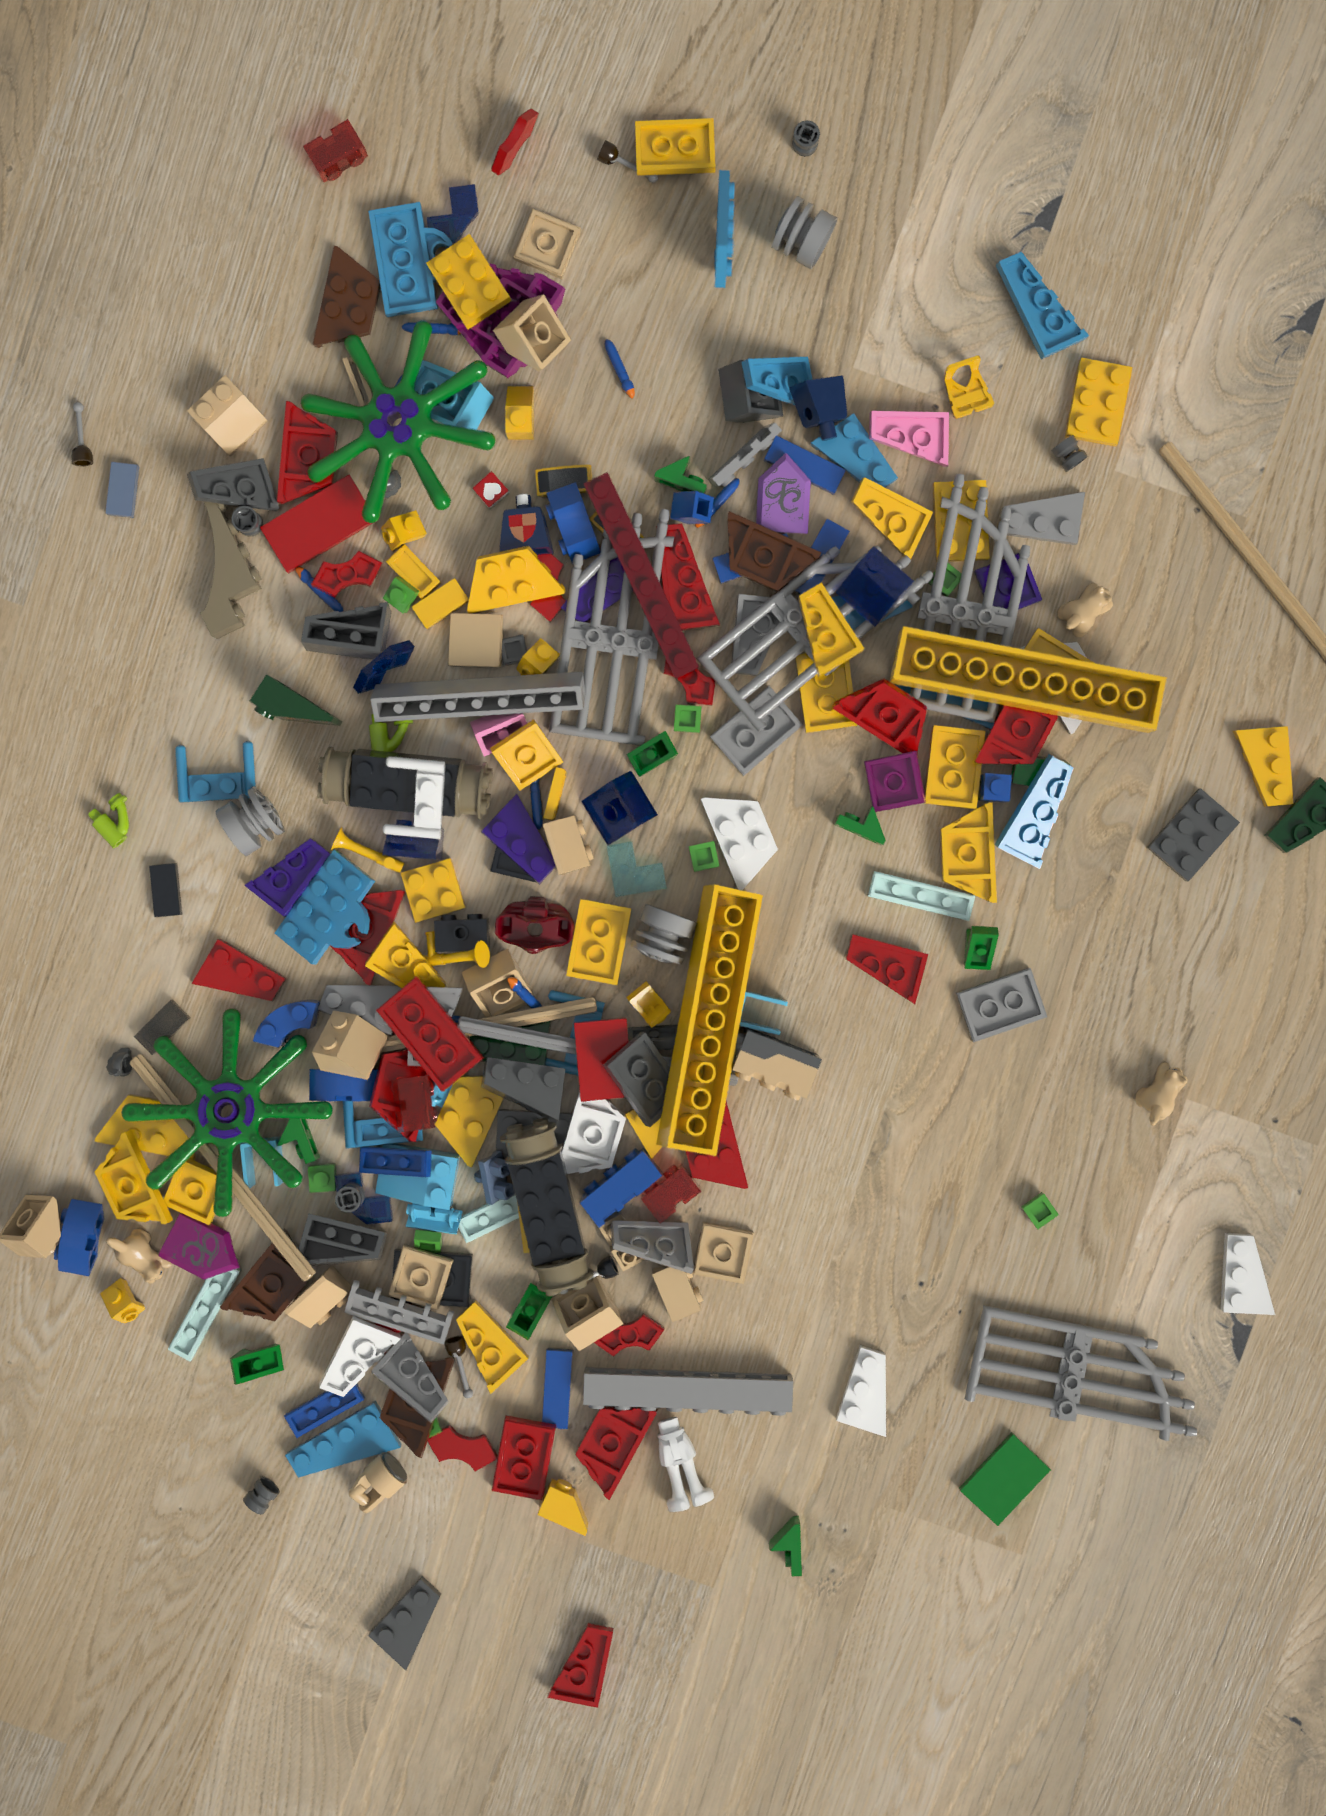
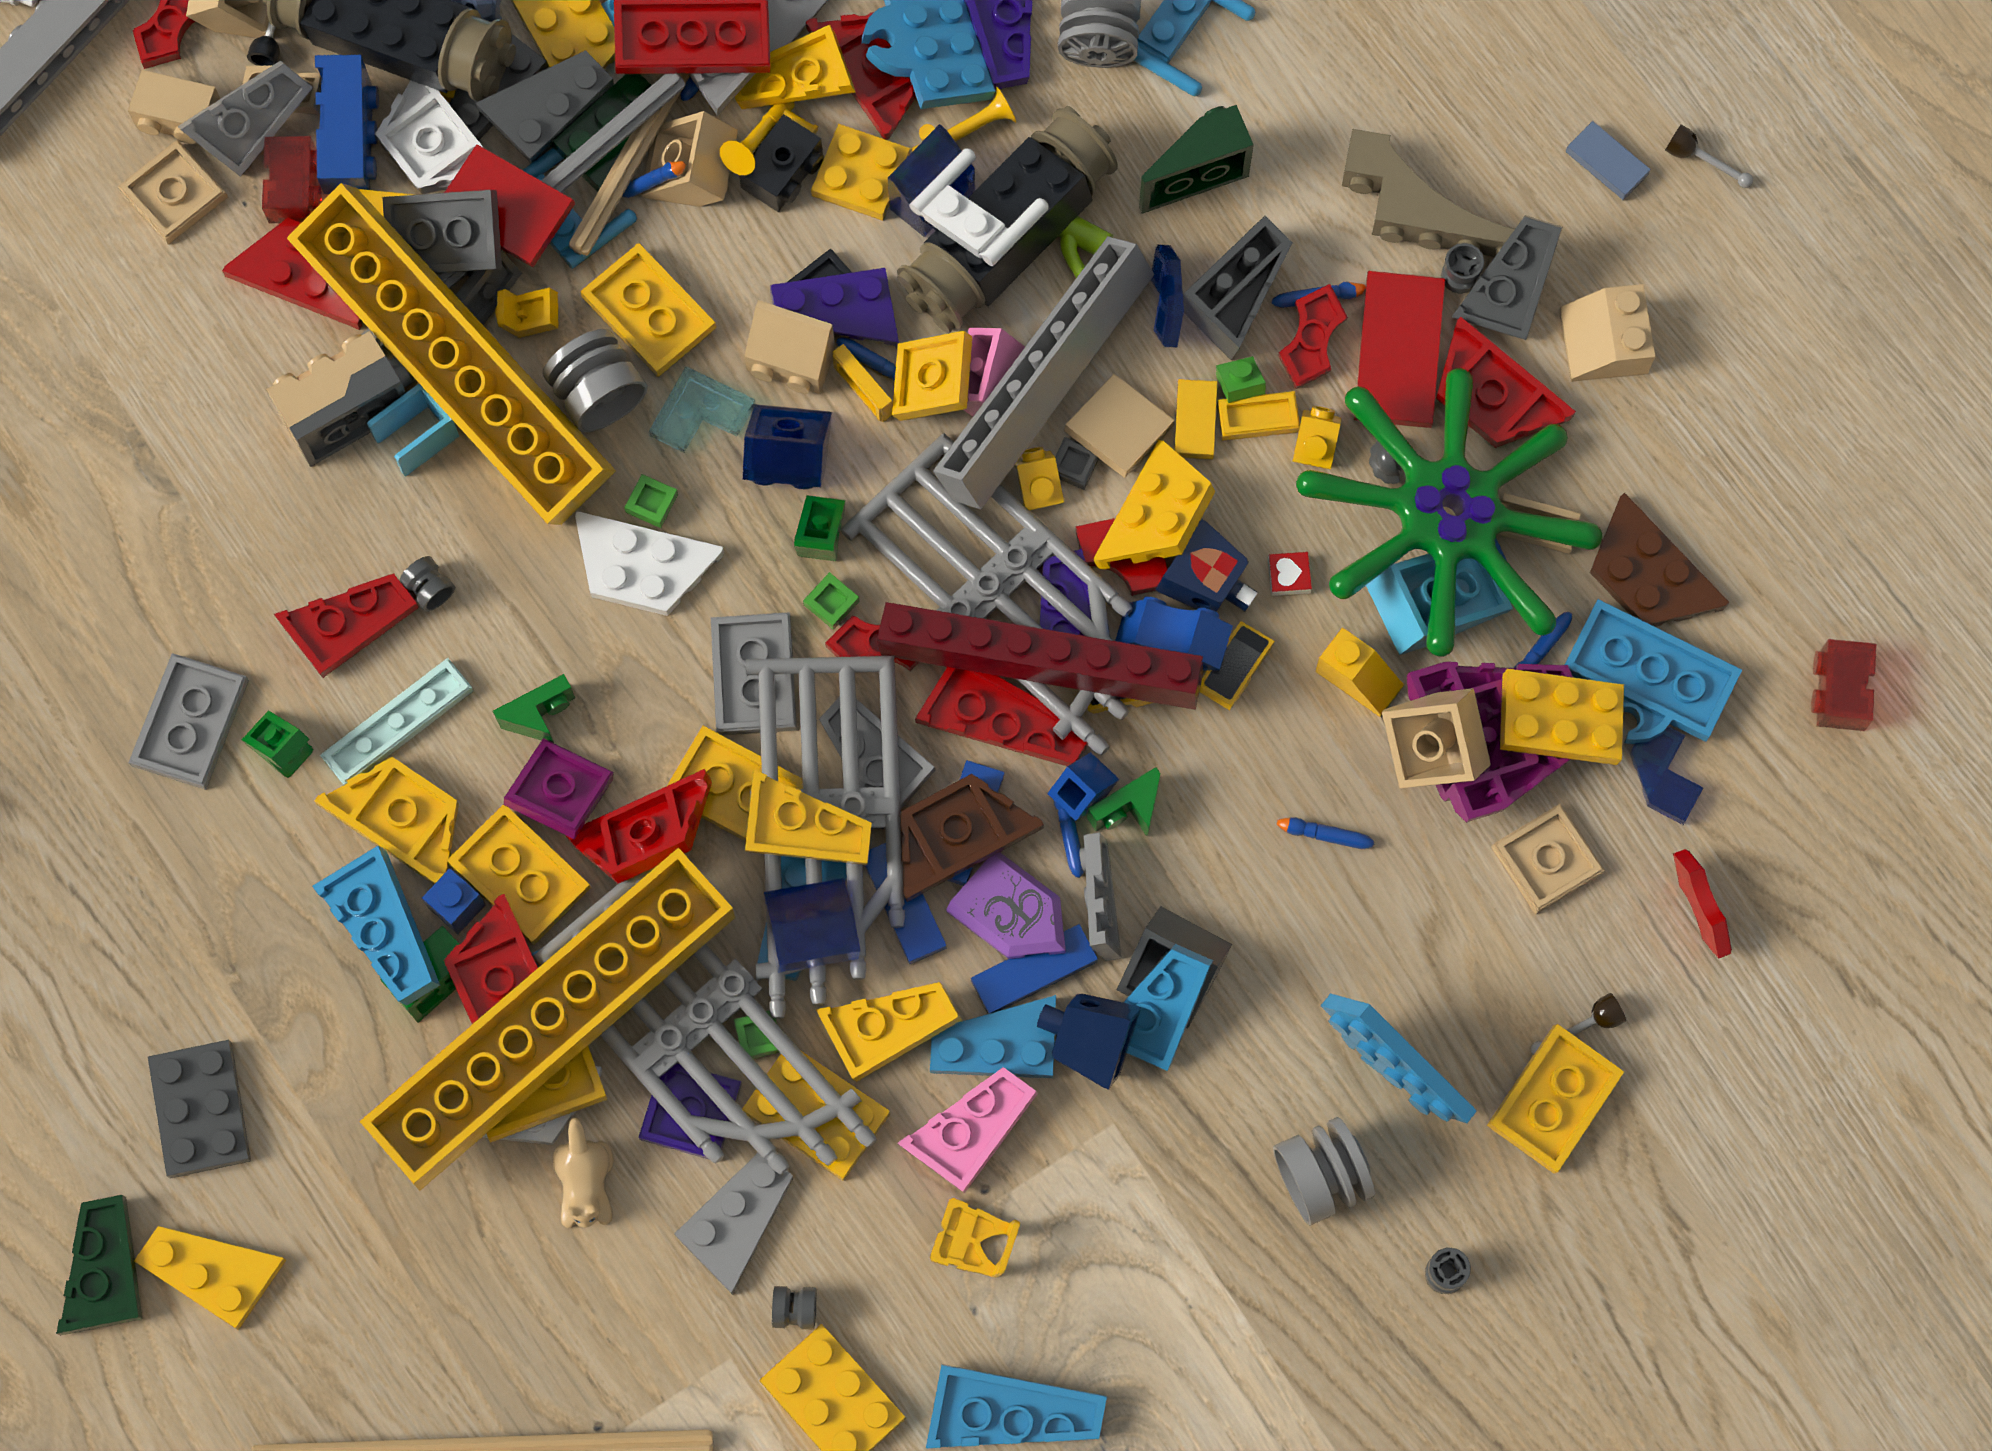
camera: 125 degrees right, 15 degrees down
(555, 920) = (745, 248): dark red piece -> none
(837, 937) = (427, 583): none -> dark grey wheel

